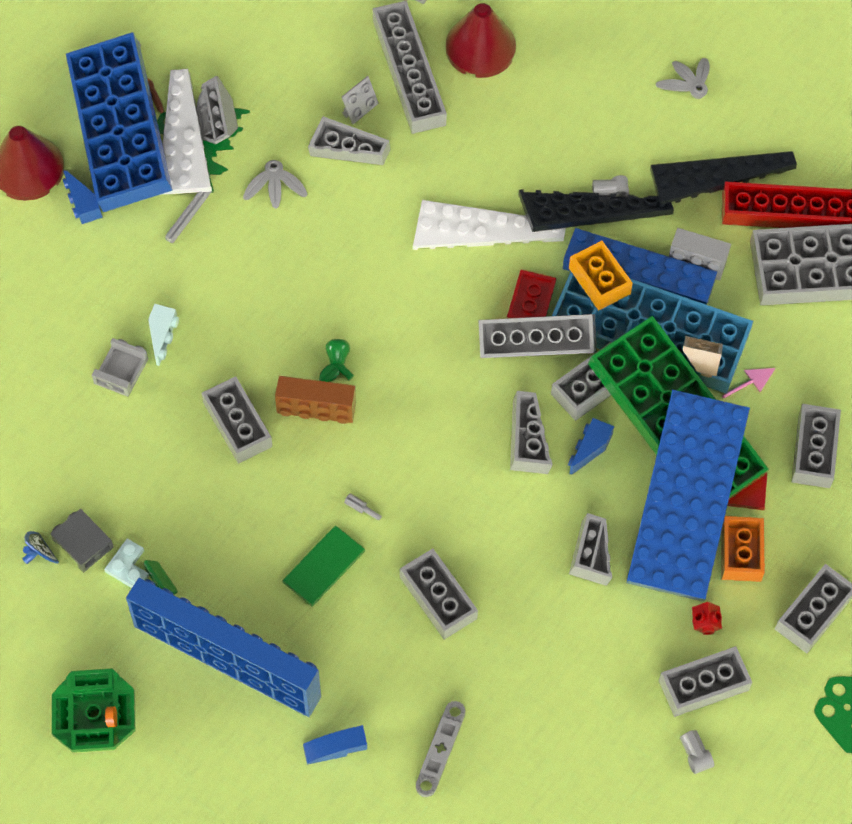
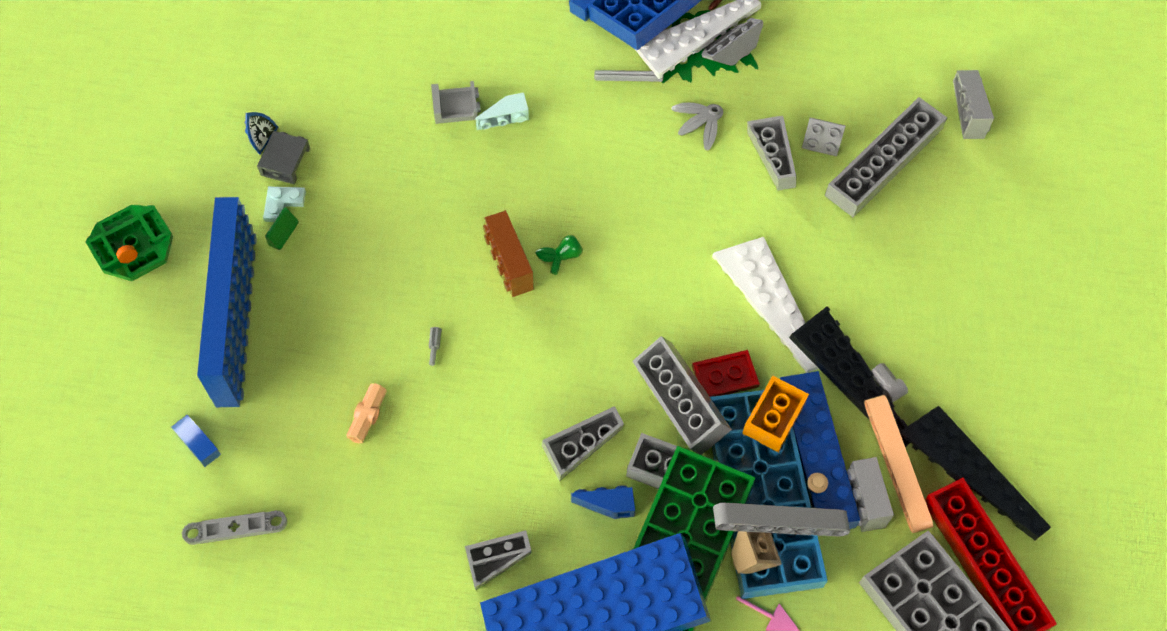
camera: 60 degrees right, 0 degrees up
(237, 419) = (455, 206): light grey brick -> none
(323, 566) = (361, 344): green tile -> none
(396, 591) = (366, 413): none -> light nougat piece
(438, 593) = (379, 447): light grey brick -> none
(480, 43) = (955, 200): dark red cone -> none
(672, 281) = (817, 482): none -> tan plate
(685, 218) = (898, 464): none -> light nougat beam
(692, 81) = (1059, 390): light grey plant -> none
(695, 319) = (781, 519): none -> light grey beam

